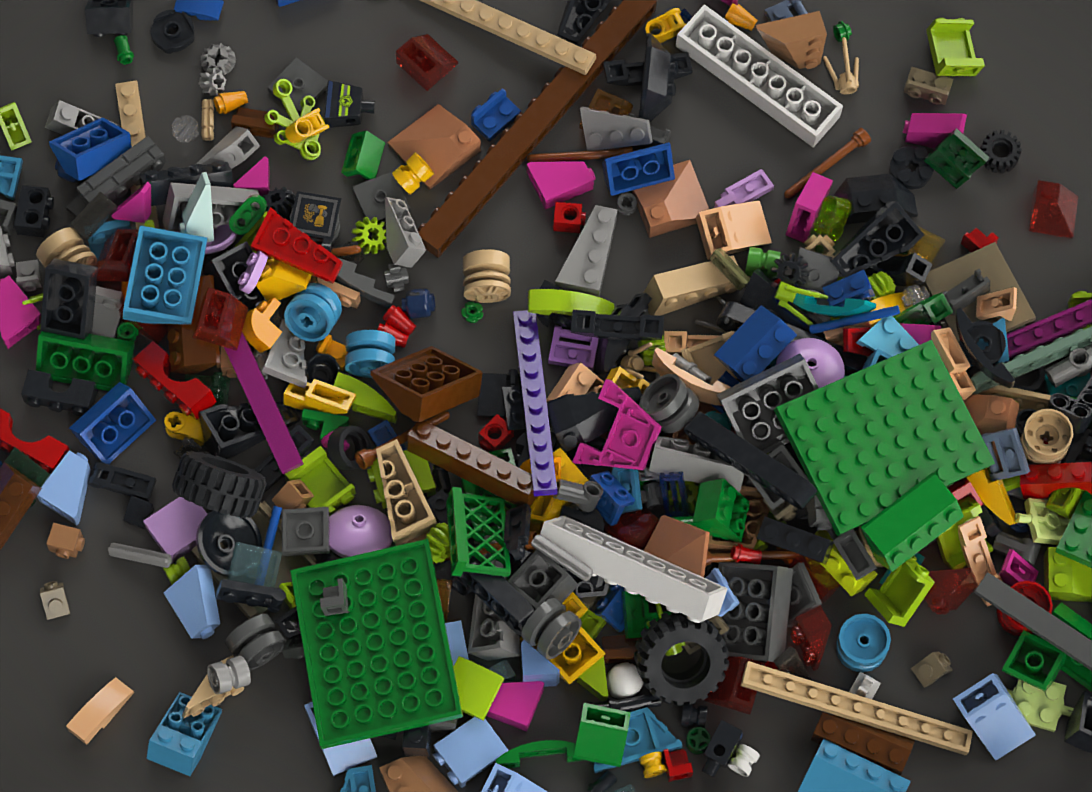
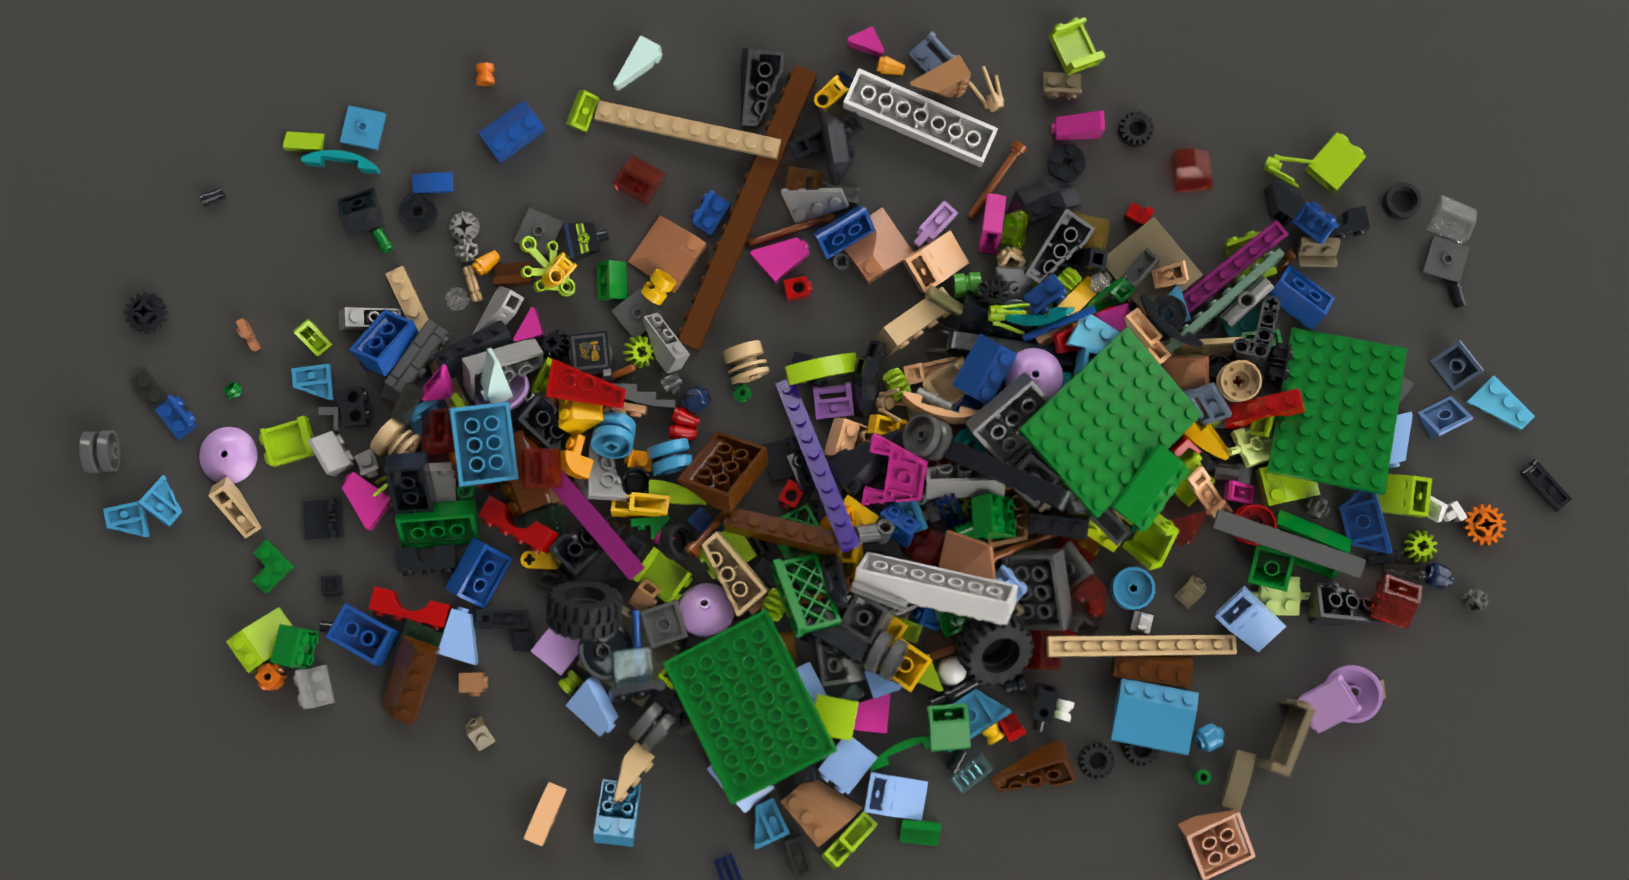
camera: 15 degrees left, 15 degrees up
(140, 555) = (536, 678): light grey axle -> none
(224, 676) = (643, 762): light grey wheel -> none
(248, 213) = (534, 364): green plate -> none
(249, 279) = (555, 414): lavender plate -> none
(335, 599) = (706, 680): dark grey panel -> none
(589, 257) = (824, 321): light grey wedge -> none
(616, 326) = (866, 379): black slope -> none
(699, 736) = (1026, 703): dark green wheel -> none
(745, 554) = (1018, 548): red pin -> none
(841, 30) = (977, 56): green plate -> none
(956, 158) = (1103, 149): dark green slope -> none

